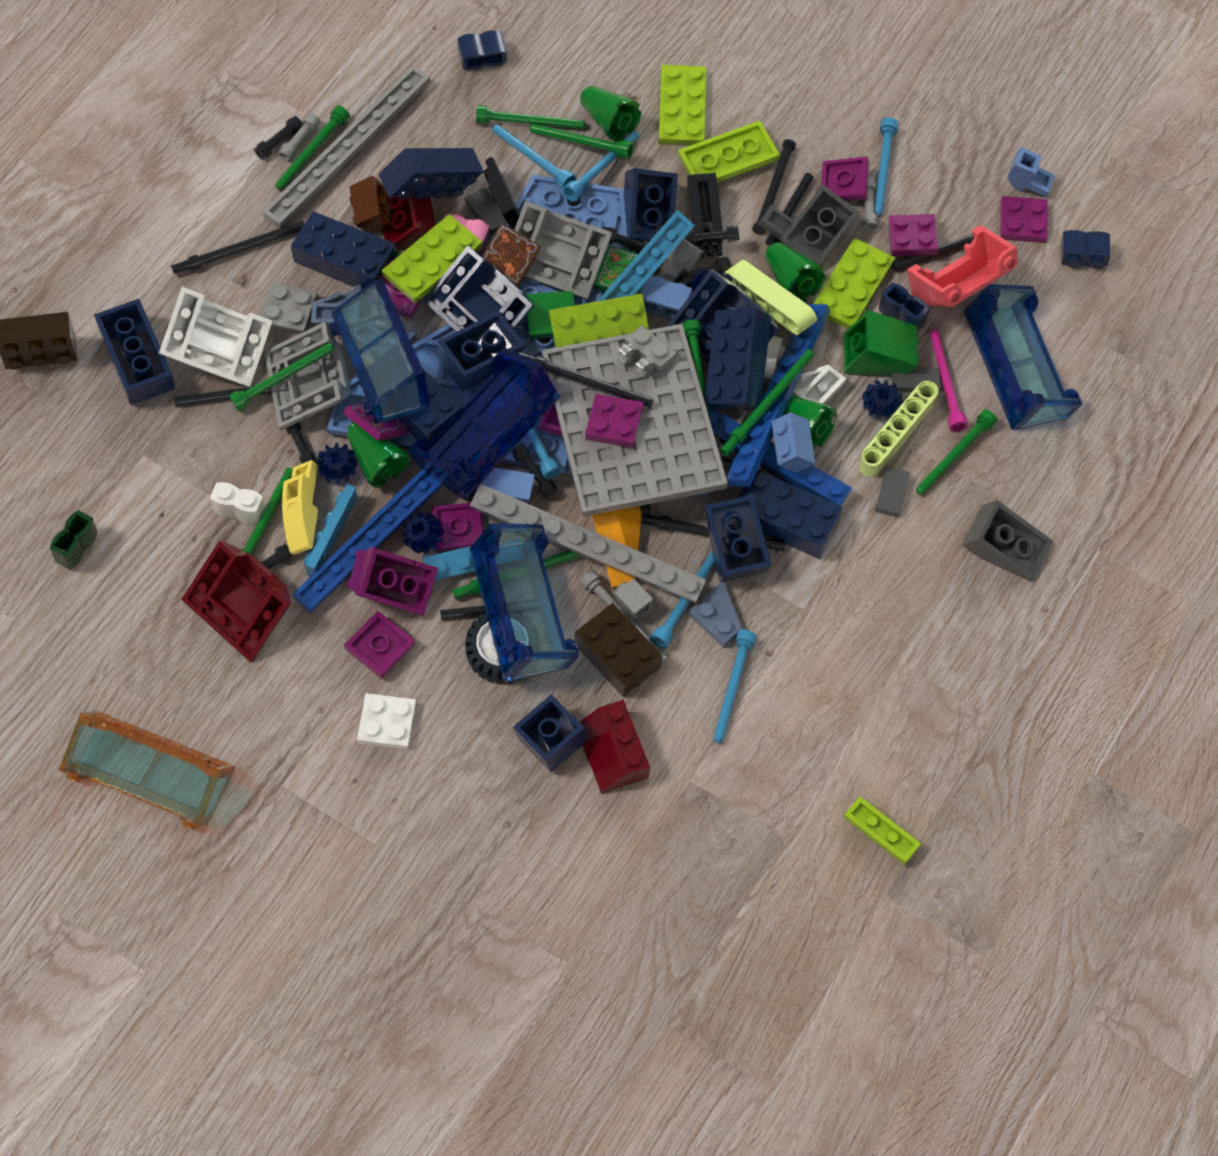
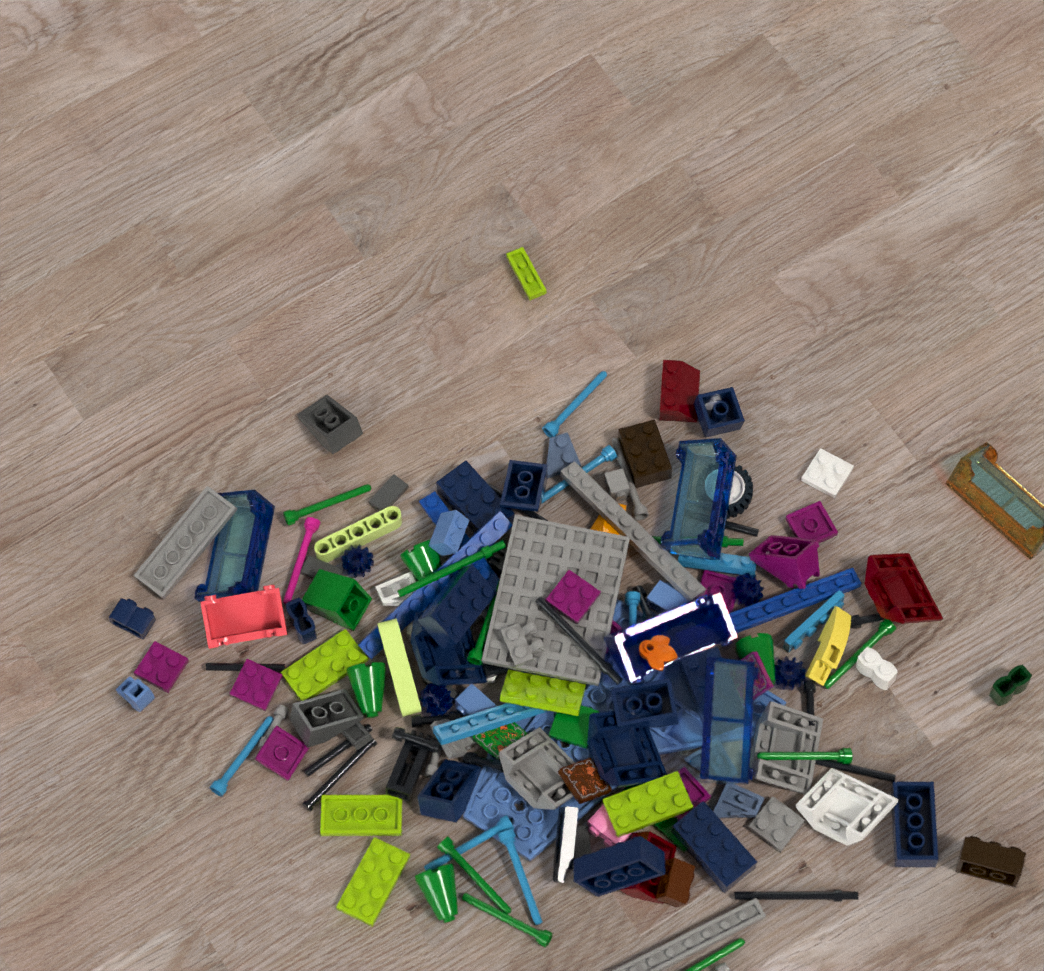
camera: 150 degrees left, 0 degrees up
(487, 401) = (659, 653): none -> orange plate
(1080, 340) = (185, 542): none -> light grey plate

